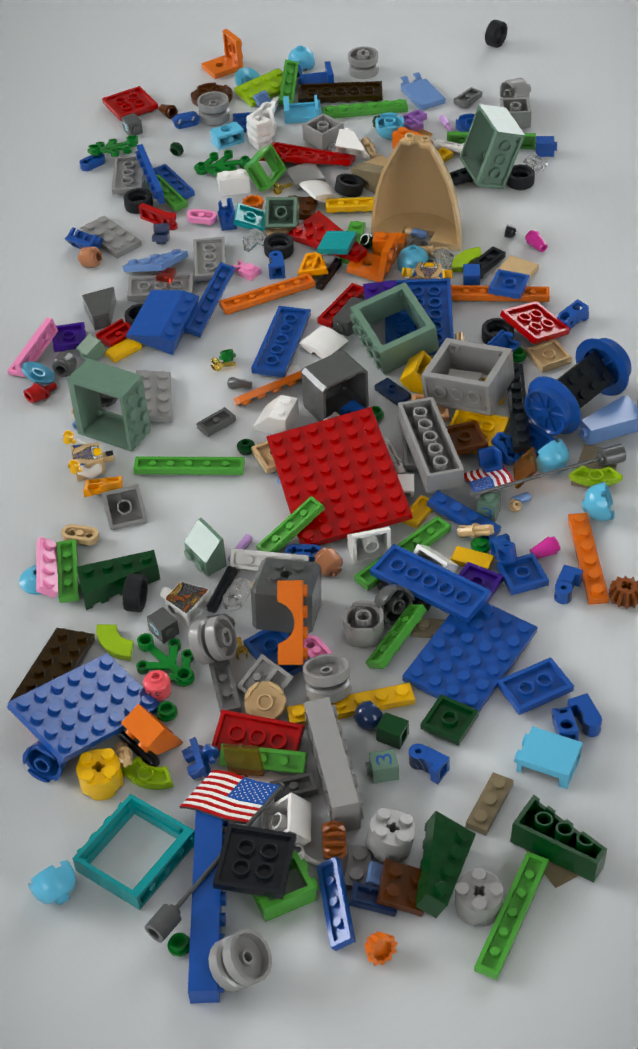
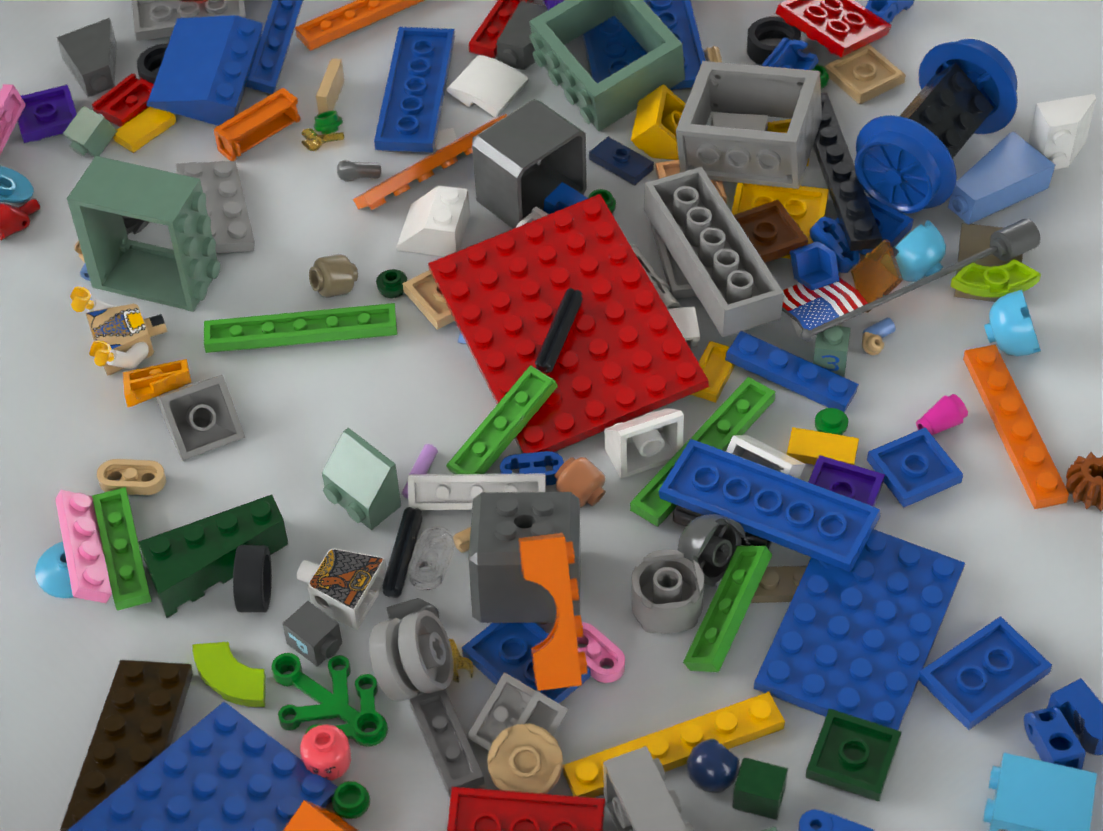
camera: 10 degrees left, 5 degrees up
(64, 364) = (46, 163): dark grey head -> none
(186, 352) = (256, 124): none -> orange container
(212, 439) = (333, 275): none -> dark tan head
(216, 422) = (334, 240): dark grey plate -> none
(233, 335) = (330, 86): none -> tan tile
(327, 677) = (628, 705): light grey wheel -> none
(331, 478) = (559, 330): none -> black axle
(475, 530) = (820, 397): tan axle -> none
(503, 548) = (877, 428): blue leg -> none
(565, 583) = (991, 485): blue leg -> none

